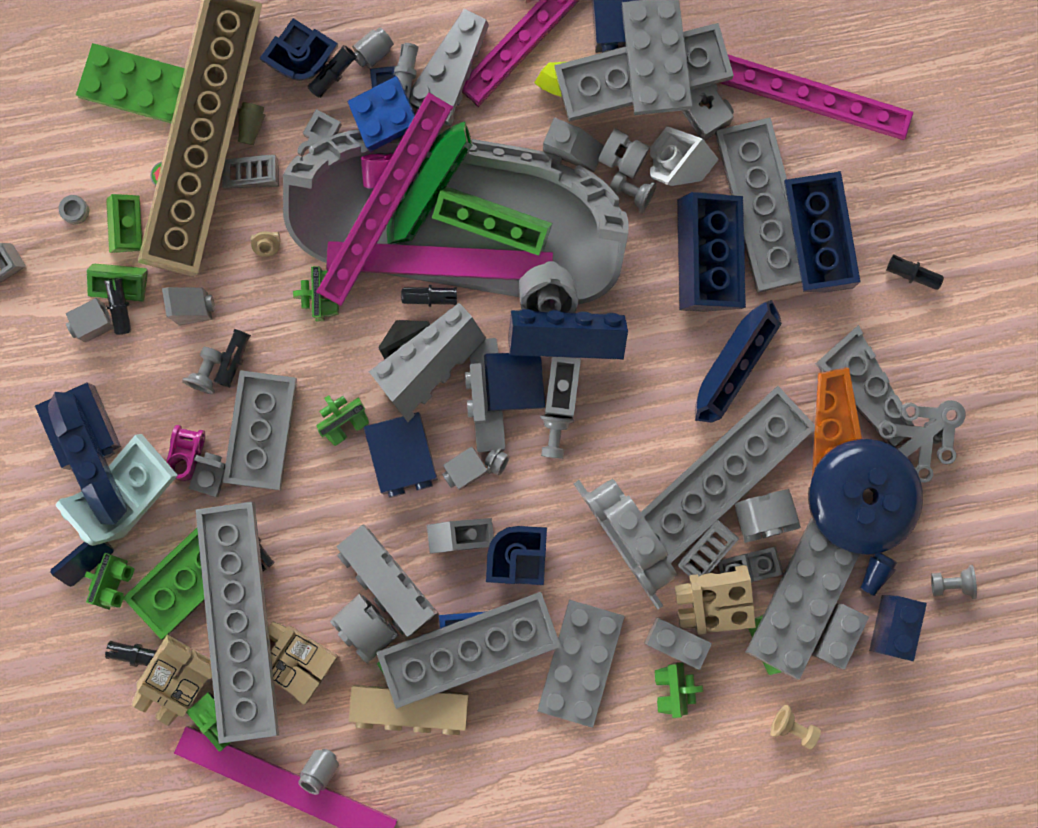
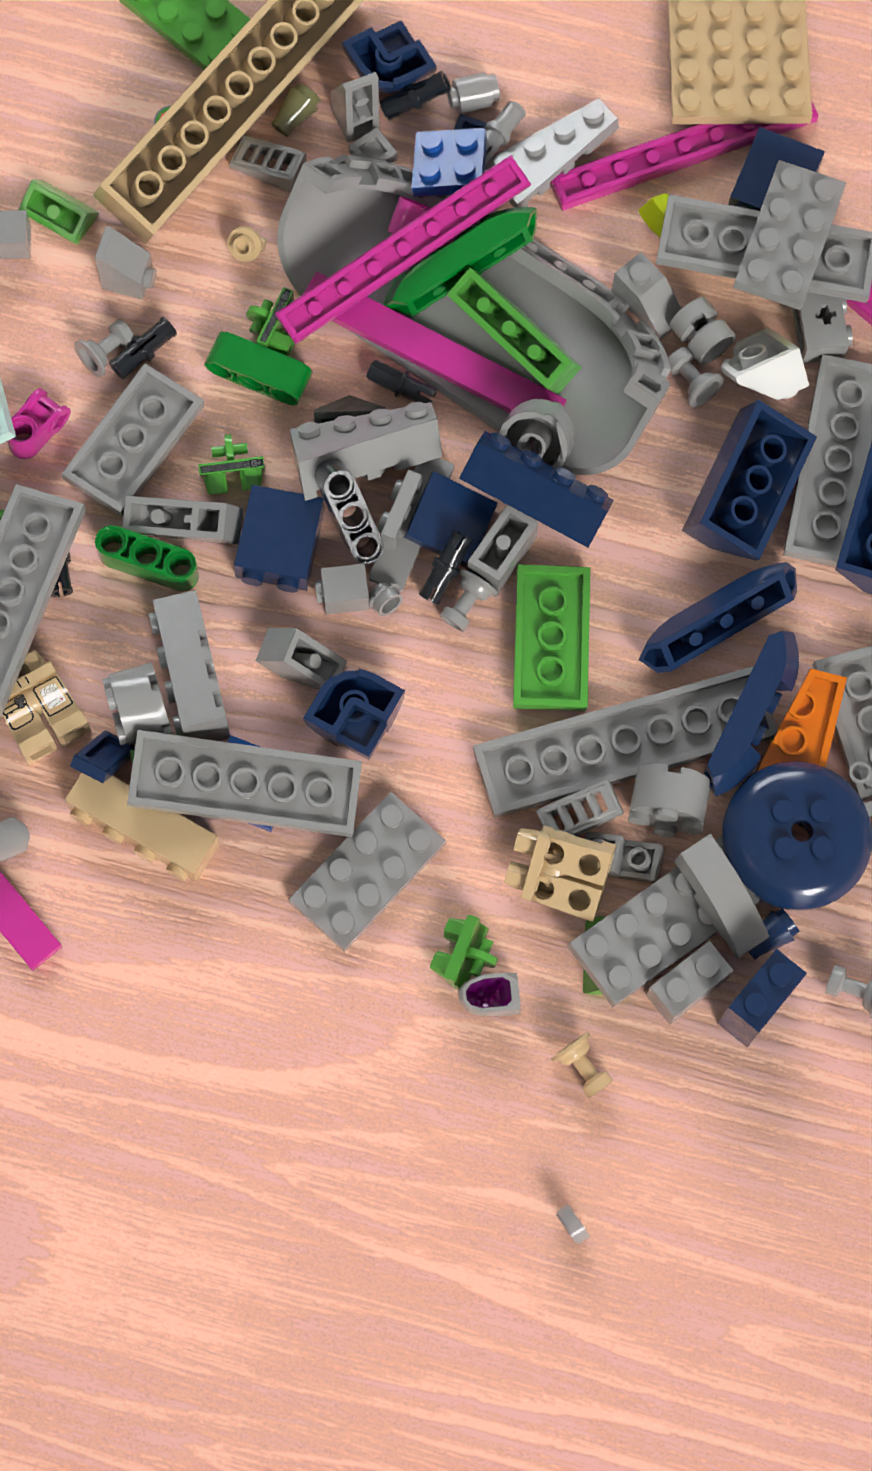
camera: 20 degrees right, 10 degrees down
(73, 209) = (51, 113): light grey tile -> none
(118, 306) = (45, 233): black axle -> none
(124, 223) = (99, 151): bright green slope -> none
(208, 474) = (49, 460): light grey bracket -> none
(293, 101) = (357, 106): none -> light grey slope
(301, 511) = (136, 545): none -> green beam
(322, 334) = (258, 368): none -> green beam
(327, 474) = (183, 519): none -> light grey slope
(358, 678) = (102, 757): none -> dark blue tile
(443, 415) = (341, 497): none -> black beam
(529, 419) = (445, 567): none -> black pin
(626, 432) = (551, 638): none -> bright green plate
(630, 536) = (497, 745): light grey brick -> none
(678, 643) = (492, 898): light grey brick -> none
(710, 712) = (491, 995): none -> rock
(795, 462) = (773, 671): none -> dark blue brick
(837, 568) = (722, 895): none -> light grey slope

